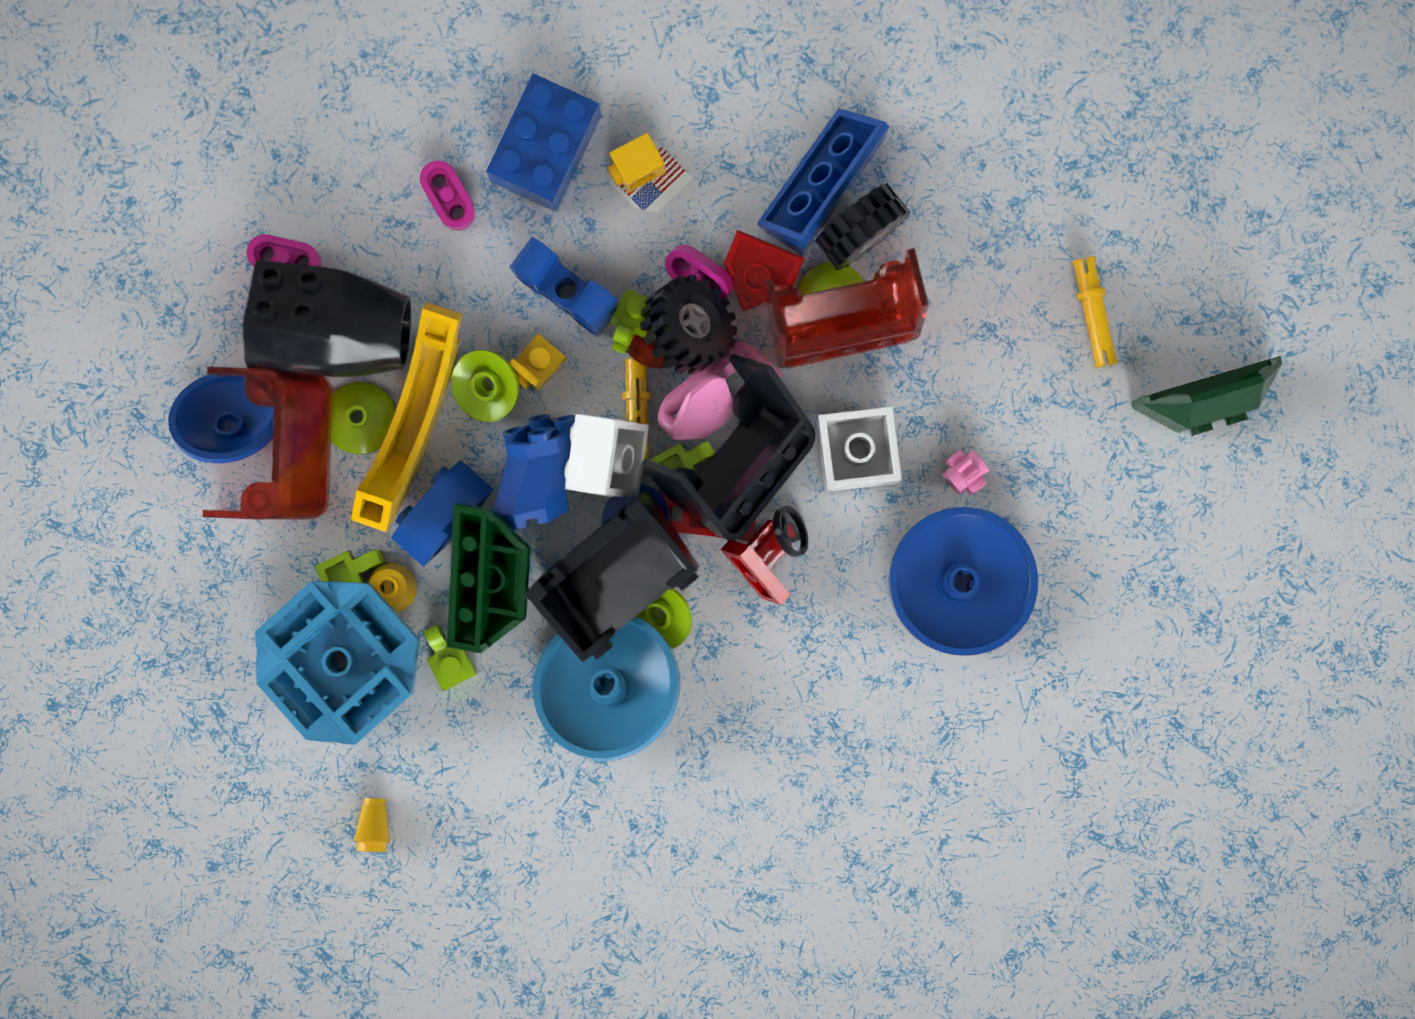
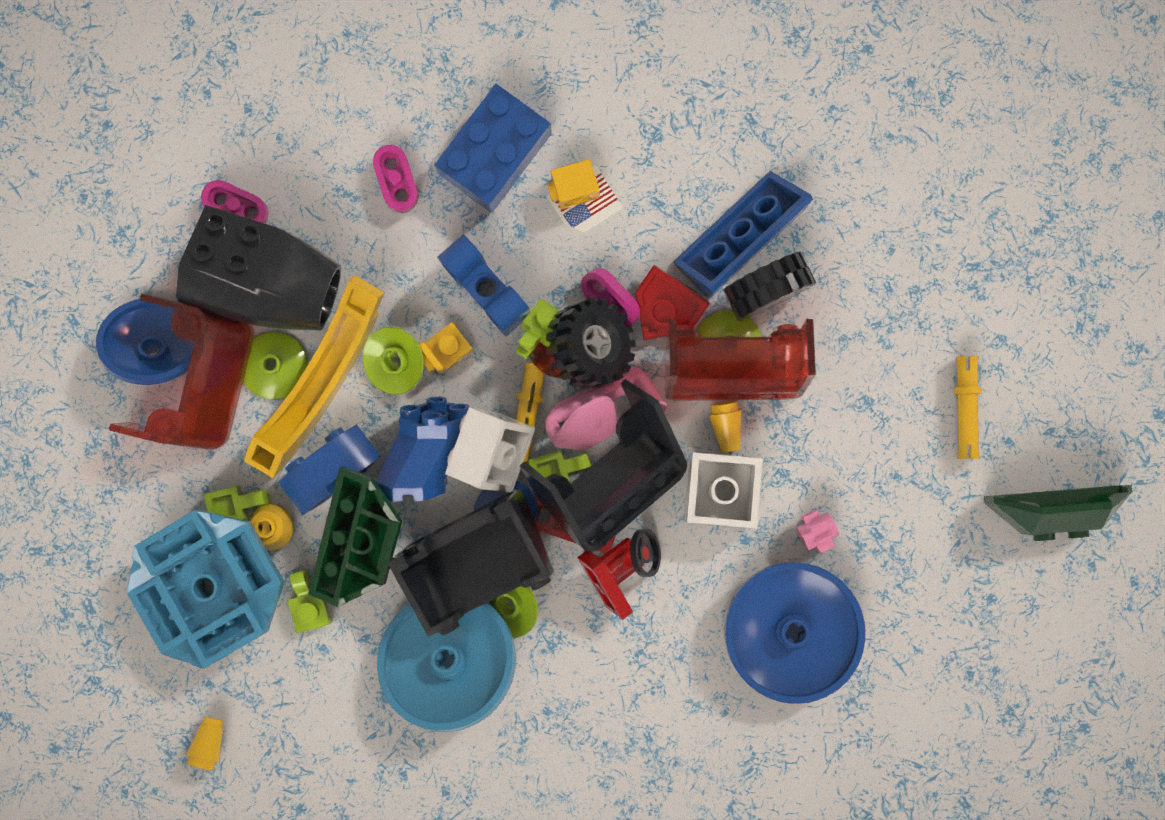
camera: 15 degrees right, 0 degrees up
(848, 381) = (726, 424): none -> yellow cone

